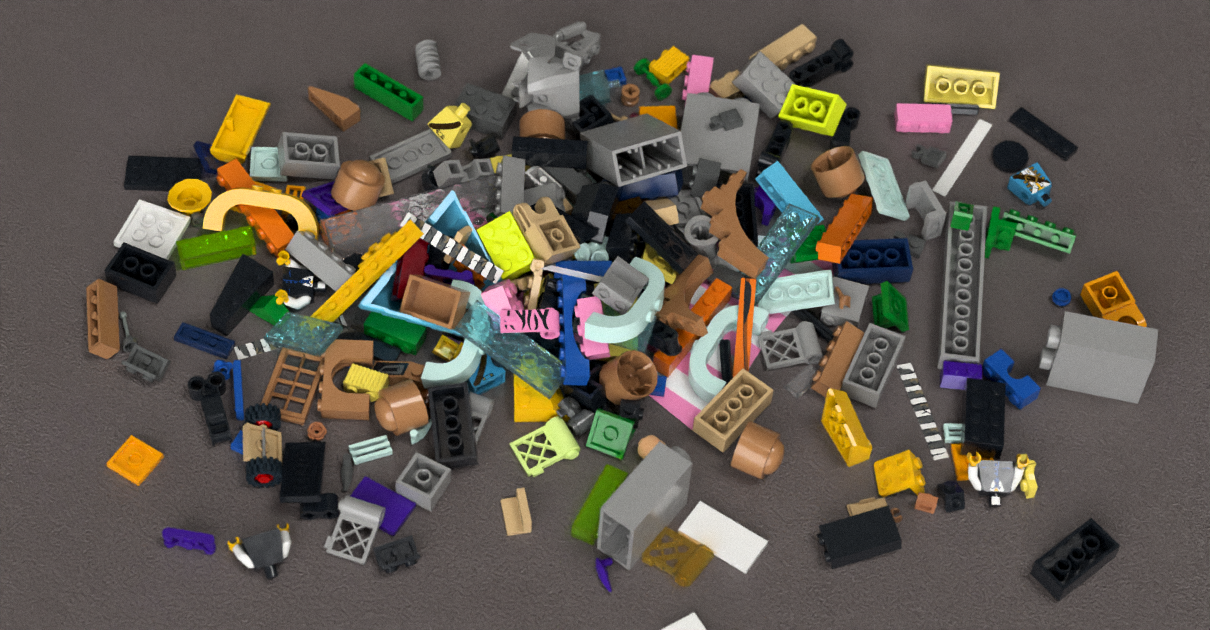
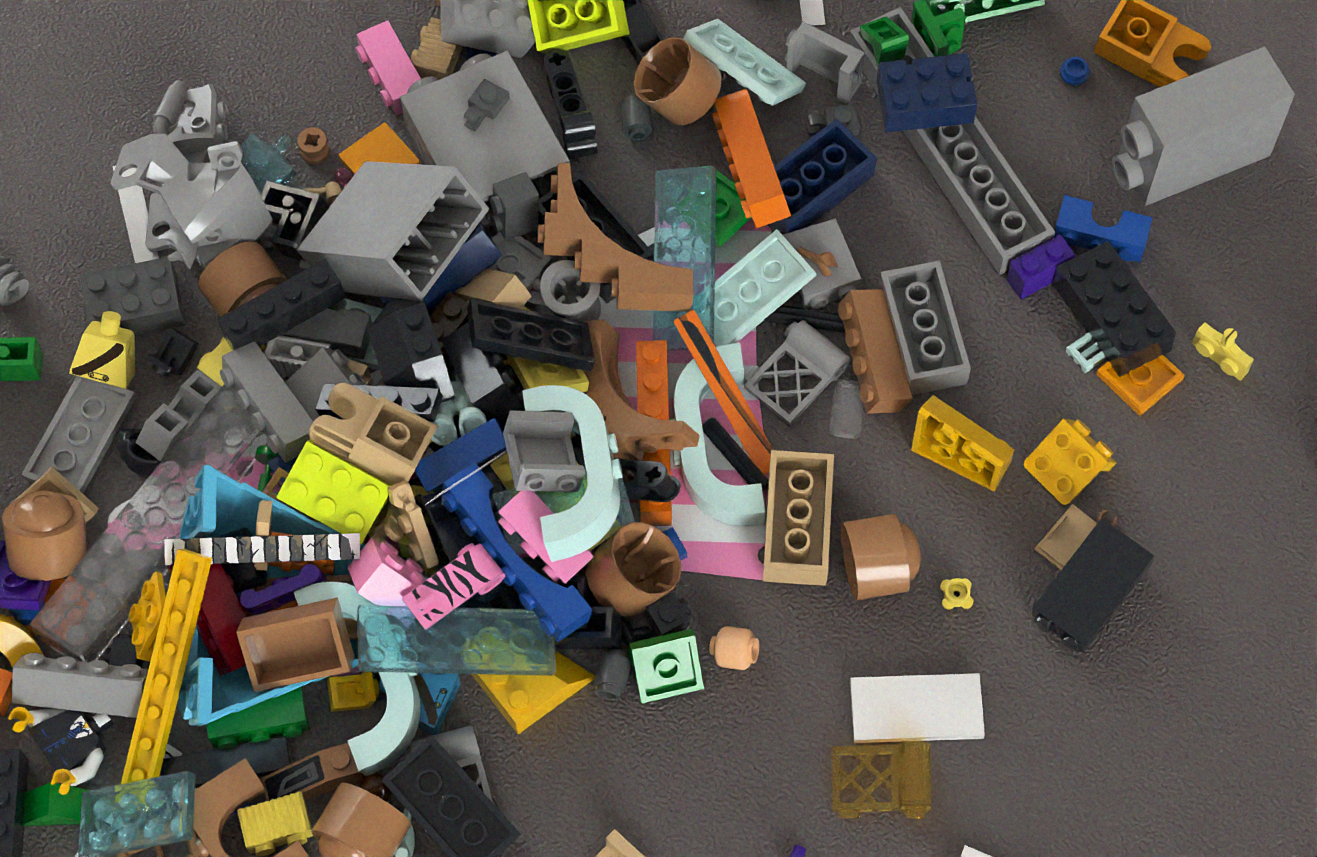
camera: 30 degrees left, 10 degrees up
(560, 440) = (603, 719): yellowish green piece -> none
(569, 407) = (582, 664): dark grey plate -> none
(587, 522) = (728, 778): clear neon green brick -> none
(614, 74) = (271, 129): blue tile -> none
(644, 504) = (803, 742): light grey brick -> none
(663, 90) = (299, 93): green wheel -> none
(669, 65) = (333, 69): yellow brick -> none
(728, 276) = (646, 328): dark grey tile -> none
(765, 205) = (610, 179): dark purple arch -> none
(784, 190) = (631, 155): medium azure brick -> none
(791, 495) = (959, 585): none -> light yellow plate
(805, 179) = (635, 118): none -> dark grey brick
(890, 308) = (882, 233): green bracket -> none
(922, 411) = (1026, 348): sticker -> none
(926, 502) = (1132, 475): nougat plate -> none
(952, 495) = (1153, 441): black bracket -> none
(963, 252) = (926, 92): none -> dark blue piece
(995, 477) = (1193, 380): torso -> none

